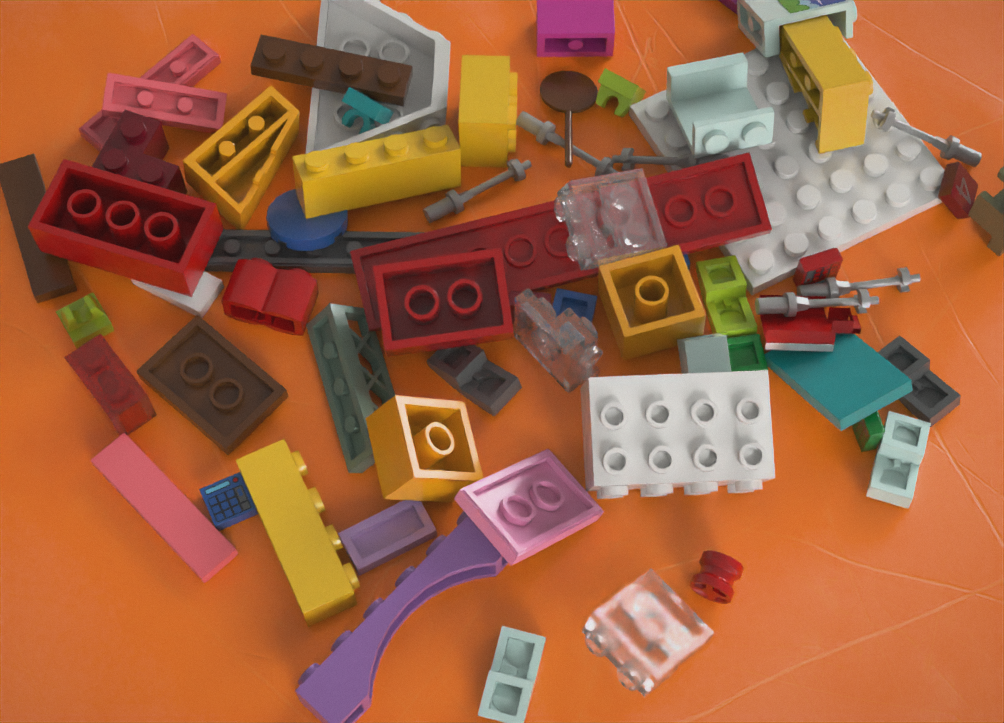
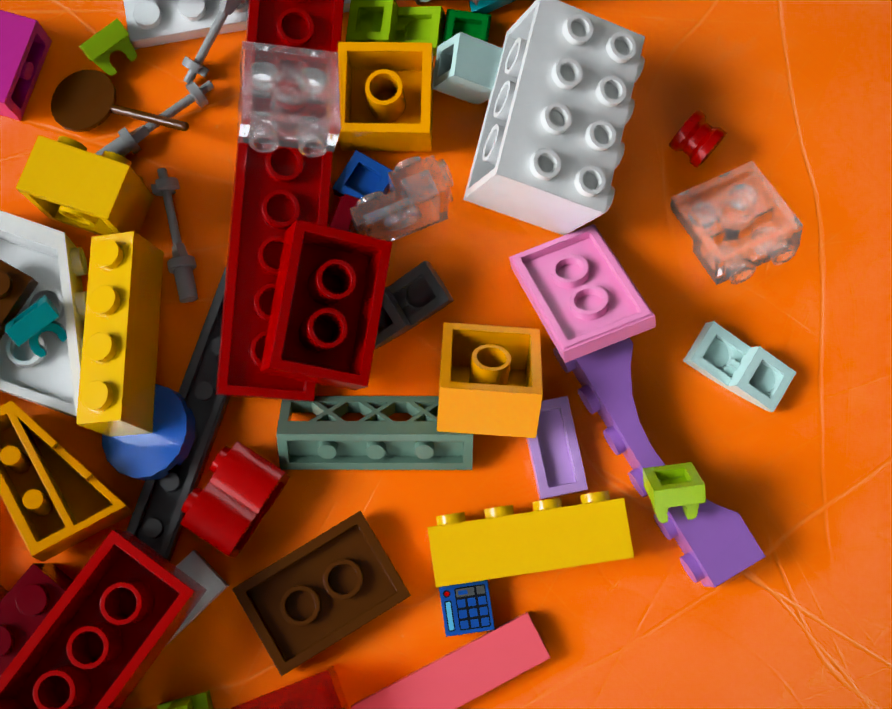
camera: 75 degrees left, 15 degrees up
(371, 620) = (674, 487): none -> lime tile

